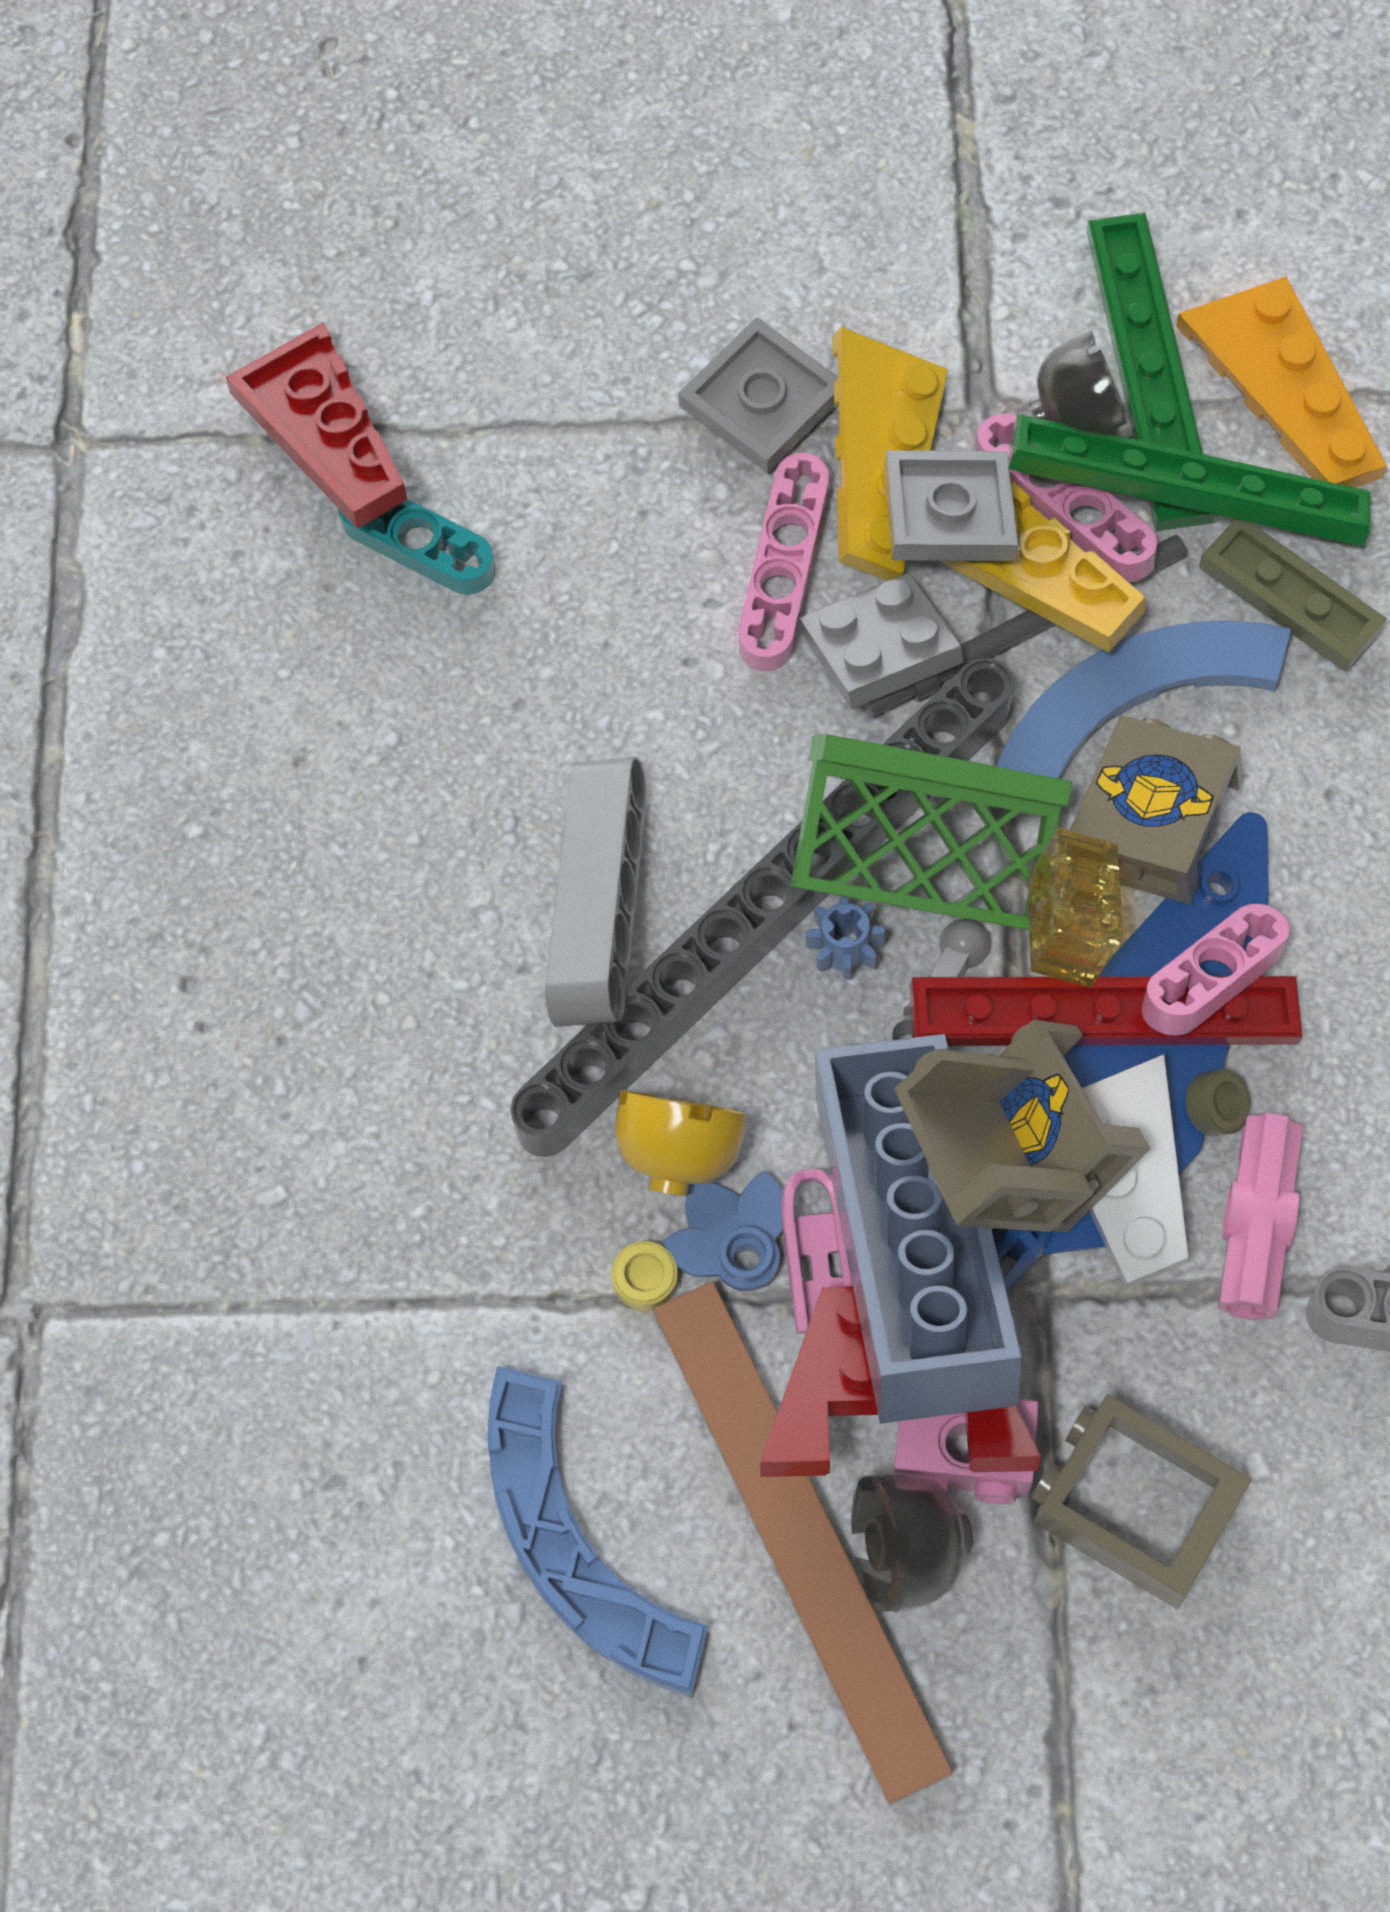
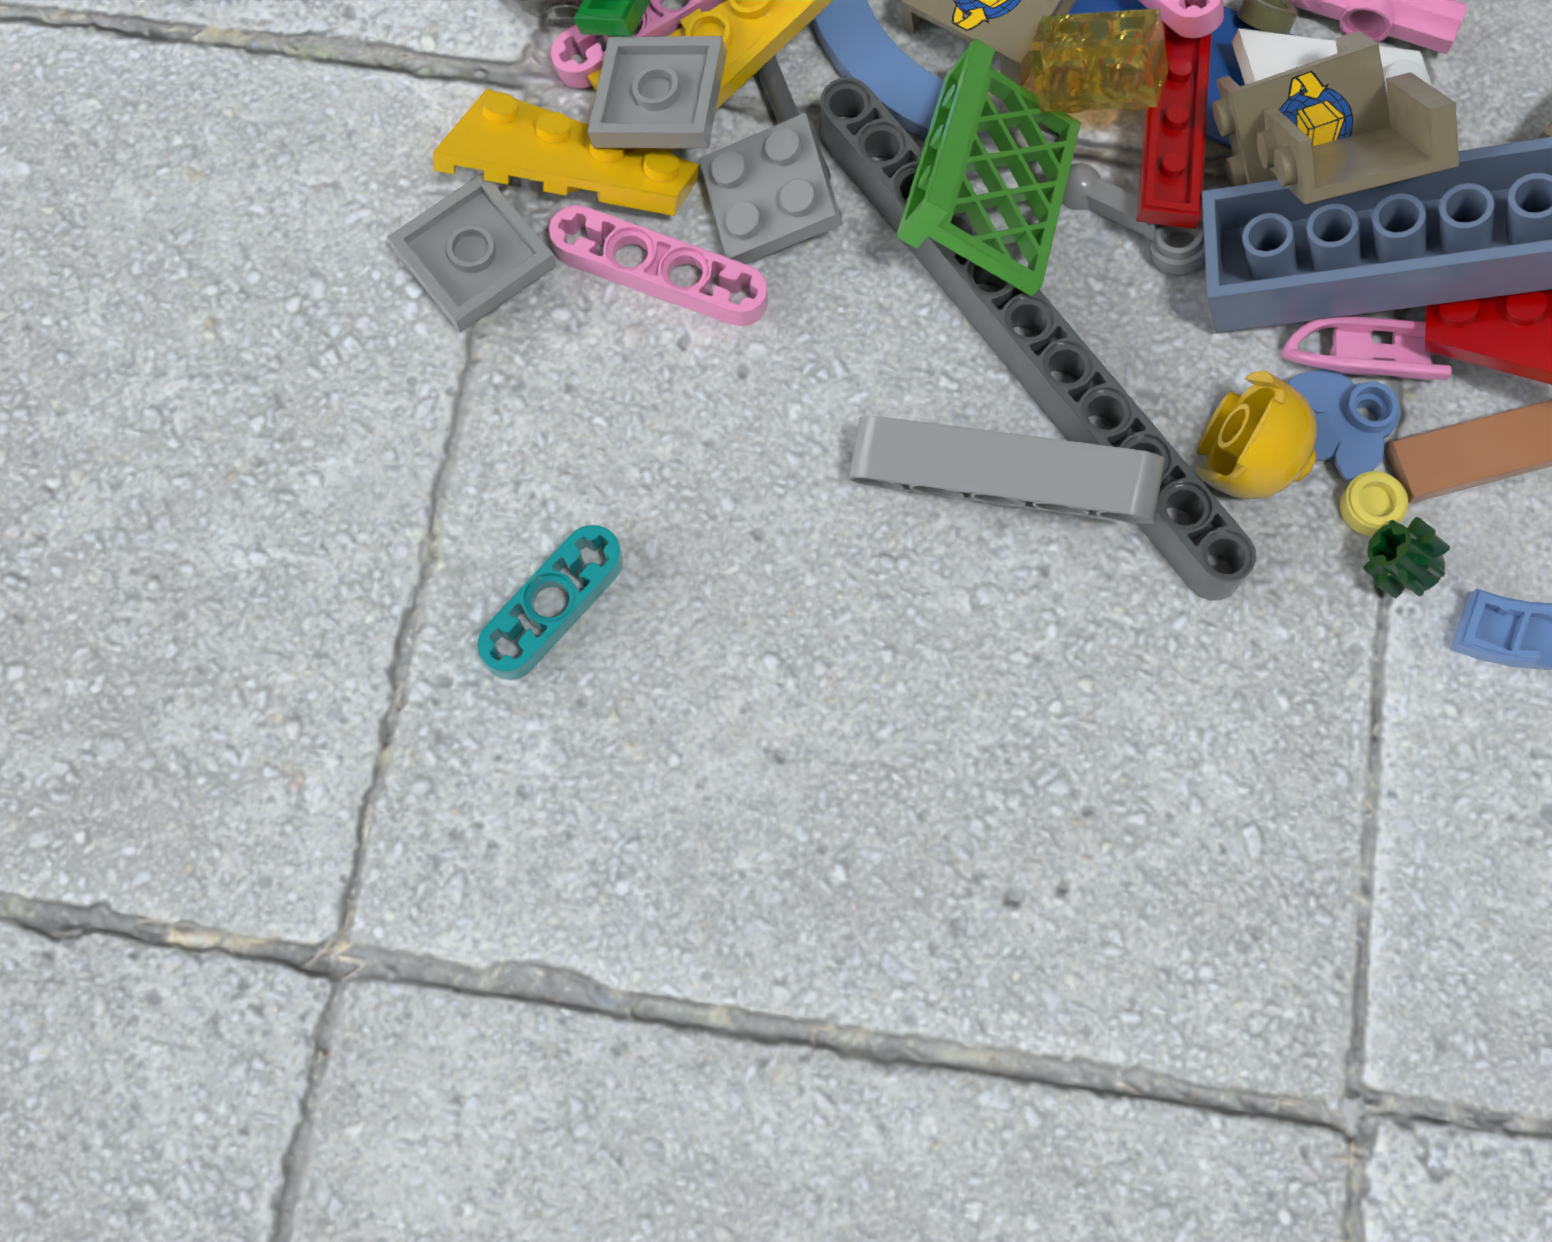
camera: 85 degrees left, 5 degrees up
(321, 423) = (382, 681): wing -> none
(576, 1297) = (1406, 557): none -> dark green gear
(846, 953) = (1074, 273): medium blue gear -> none

